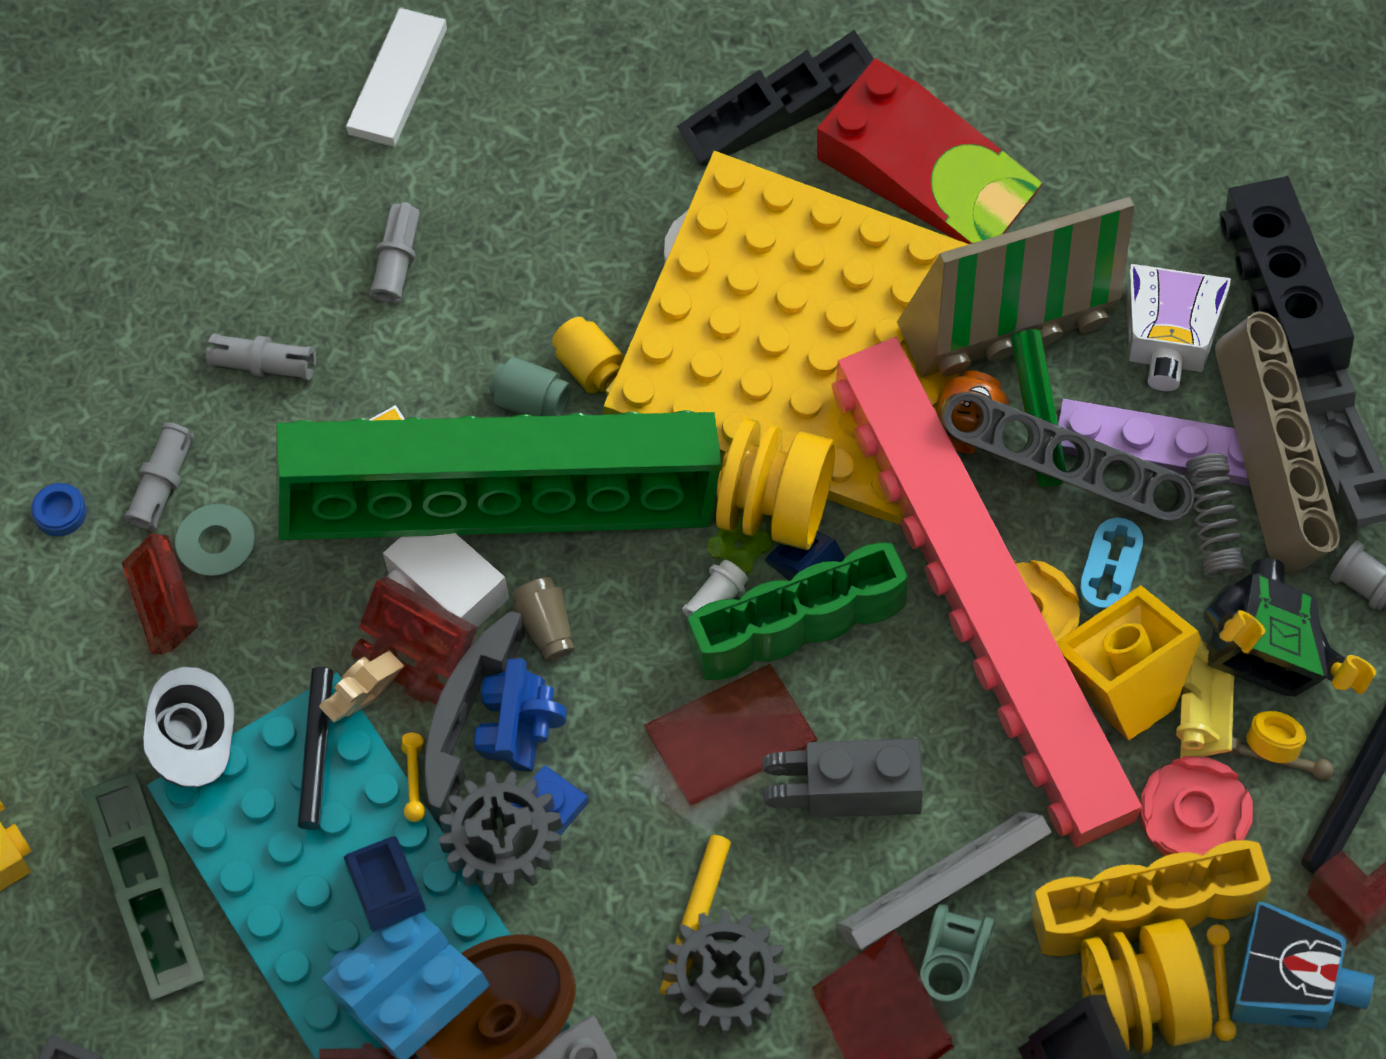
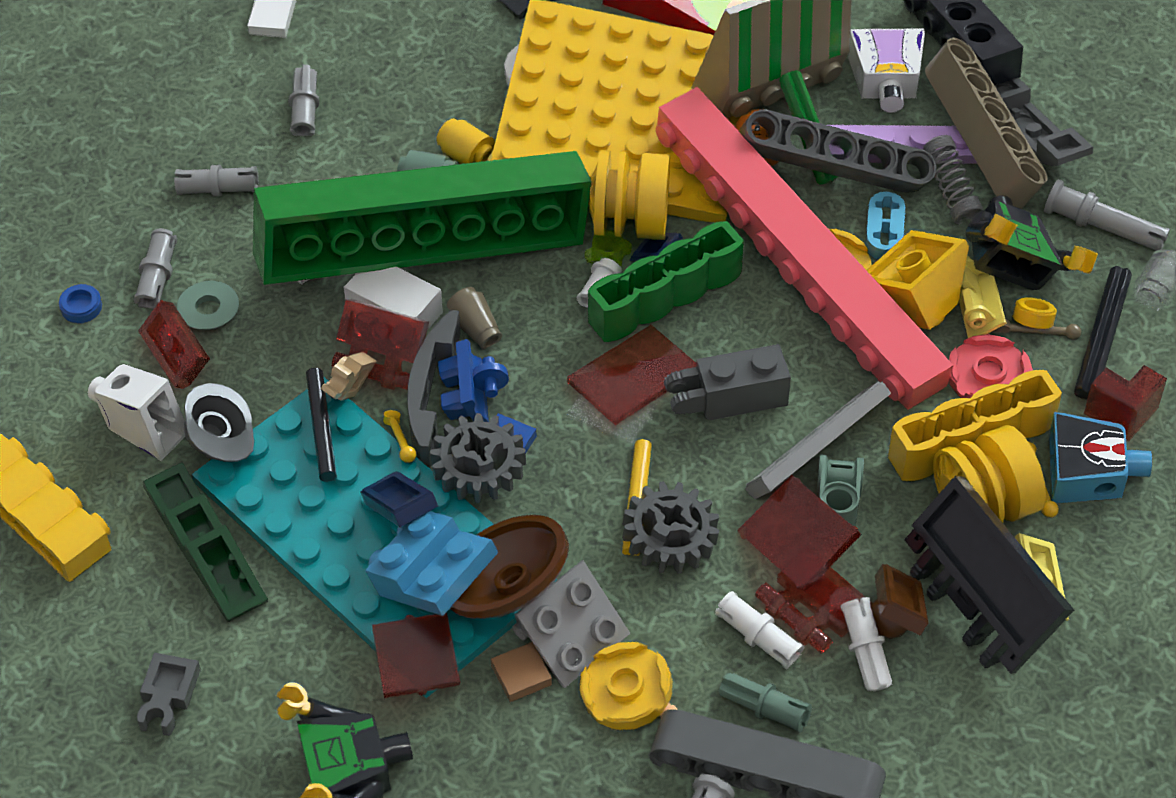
camera: 15 degrees left, 10 degrees down
(86, 671) = (140, 409): none -> white torso

